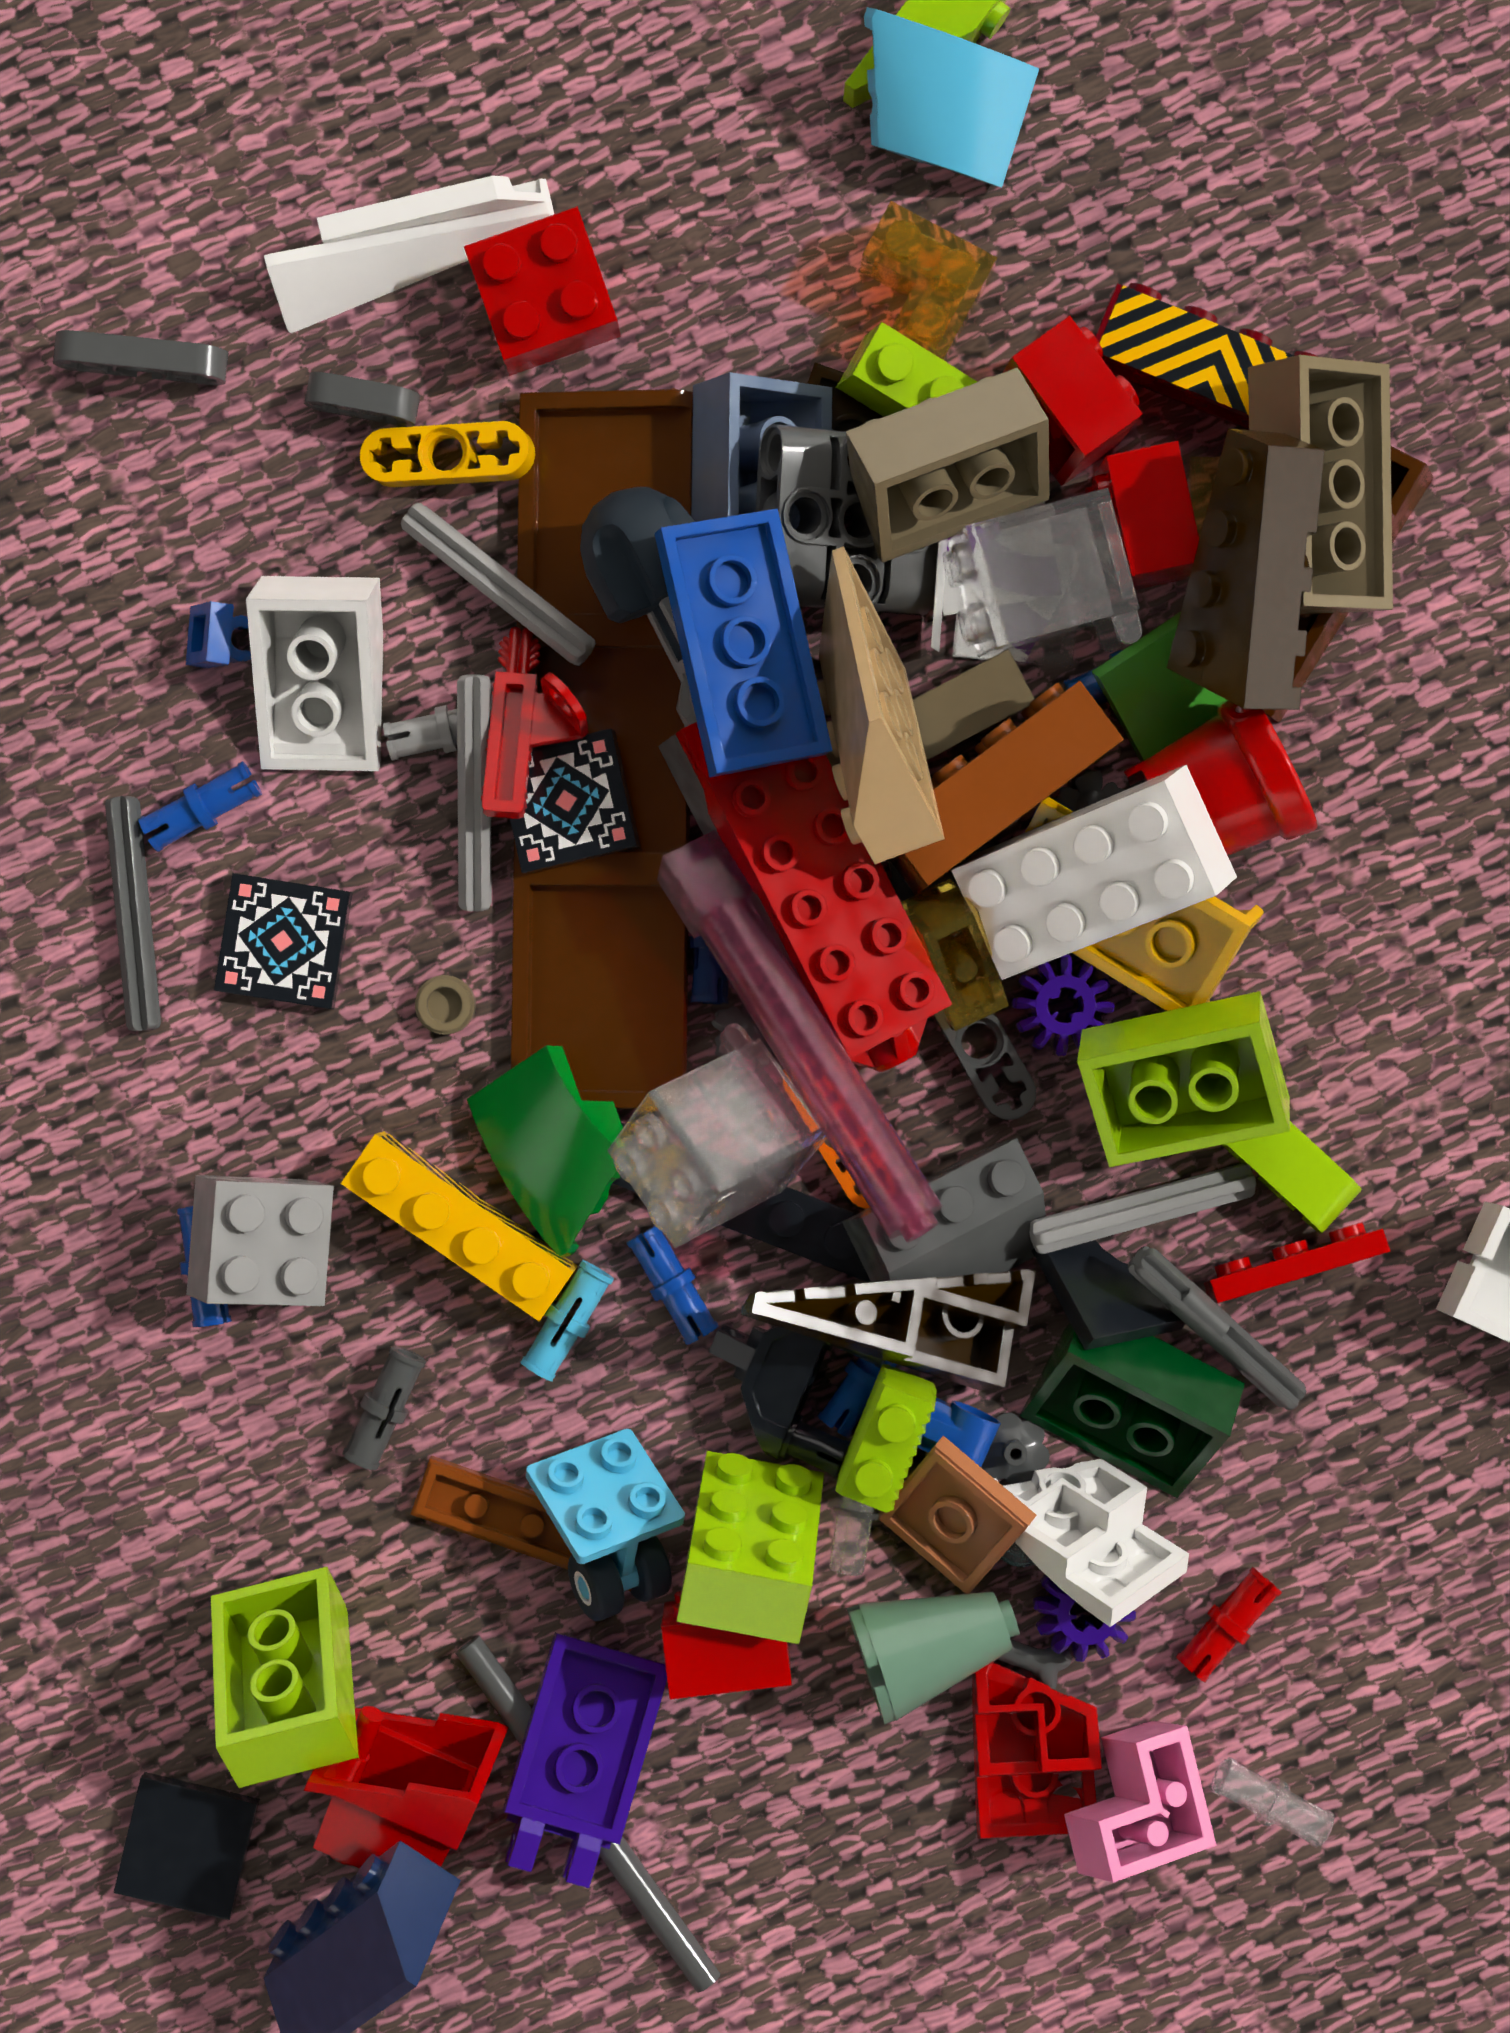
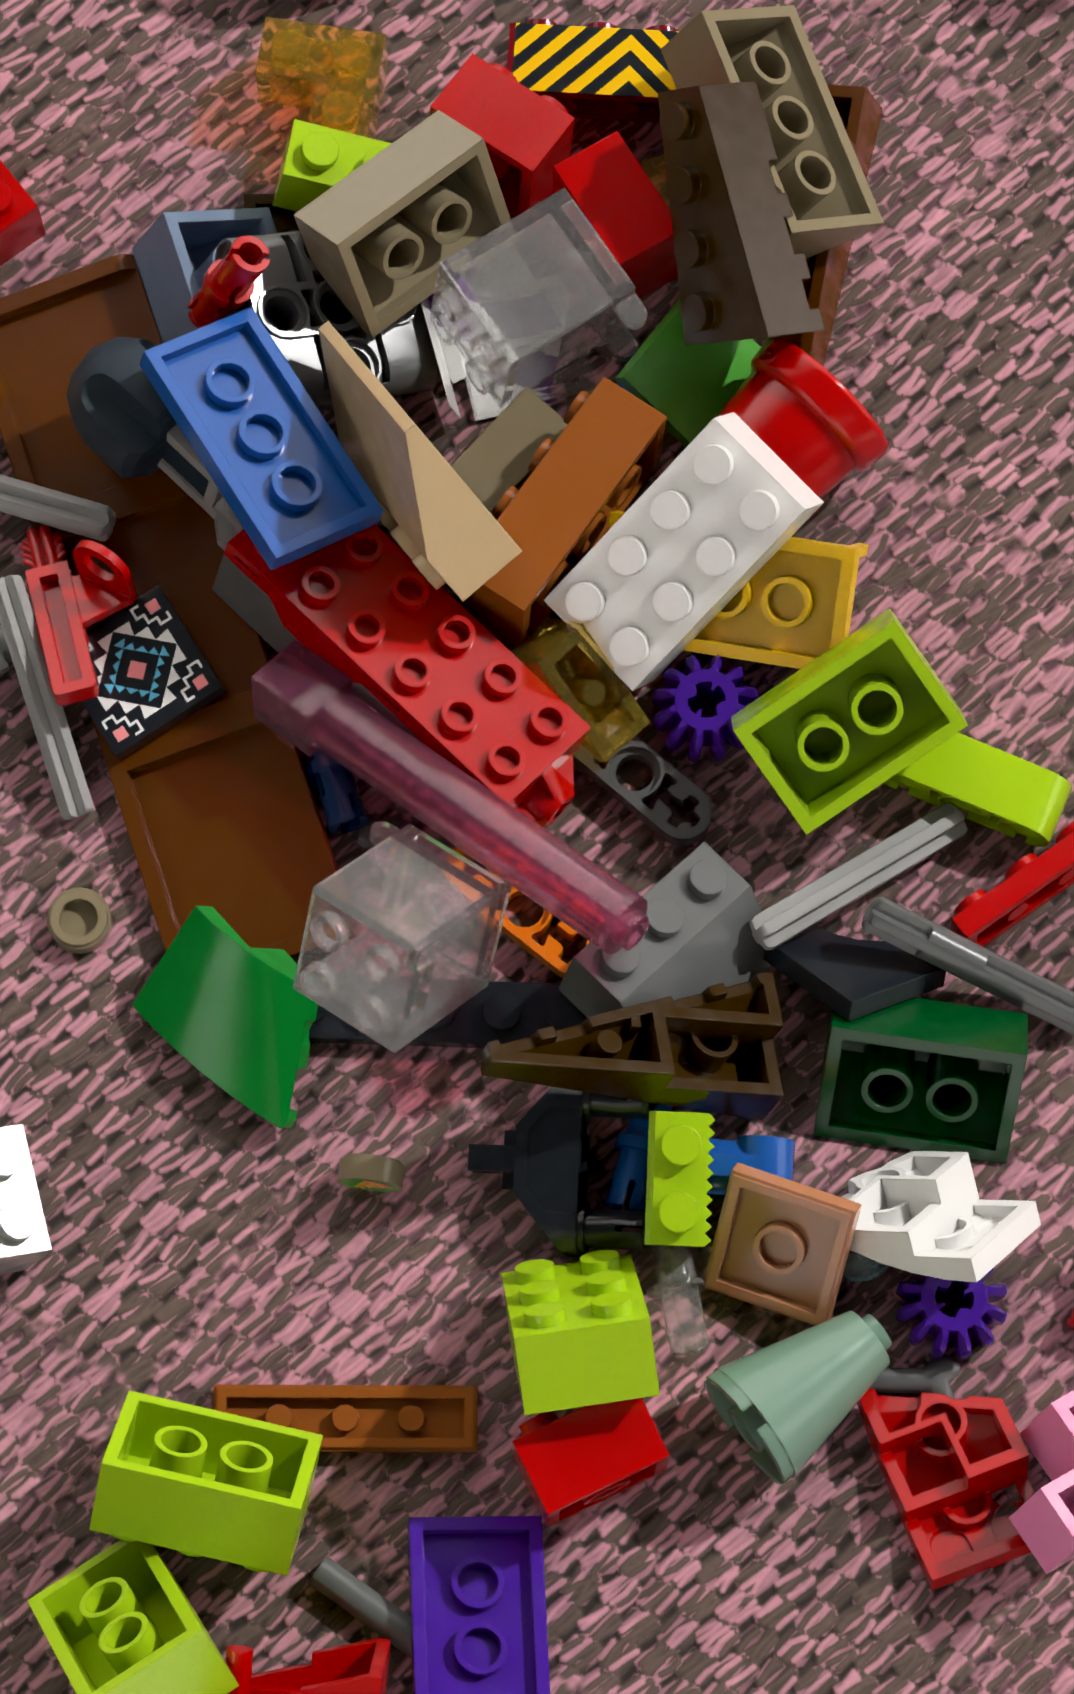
camera: 20 degrees left, 15 degrees down
(384, 1408) = (149, 1338): dark grey pin -> none
(393, 1556) = (206, 1483): none -> lime brick
(459, 1224) = (166, 1127): yellow brick -> none
(545, 1355) = (321, 1149): medium azure pin -> none
(608, 1512) = (417, 1351): medium azure plate -> none
(624, 1323) = (371, 1172): none -> dark tan tile
(672, 1284) = (407, 1119): blue pin -> none
(764, 476) = (229, 281): none -> red pin
(1021, 1435) = (830, 1154): dark grey plant -> none

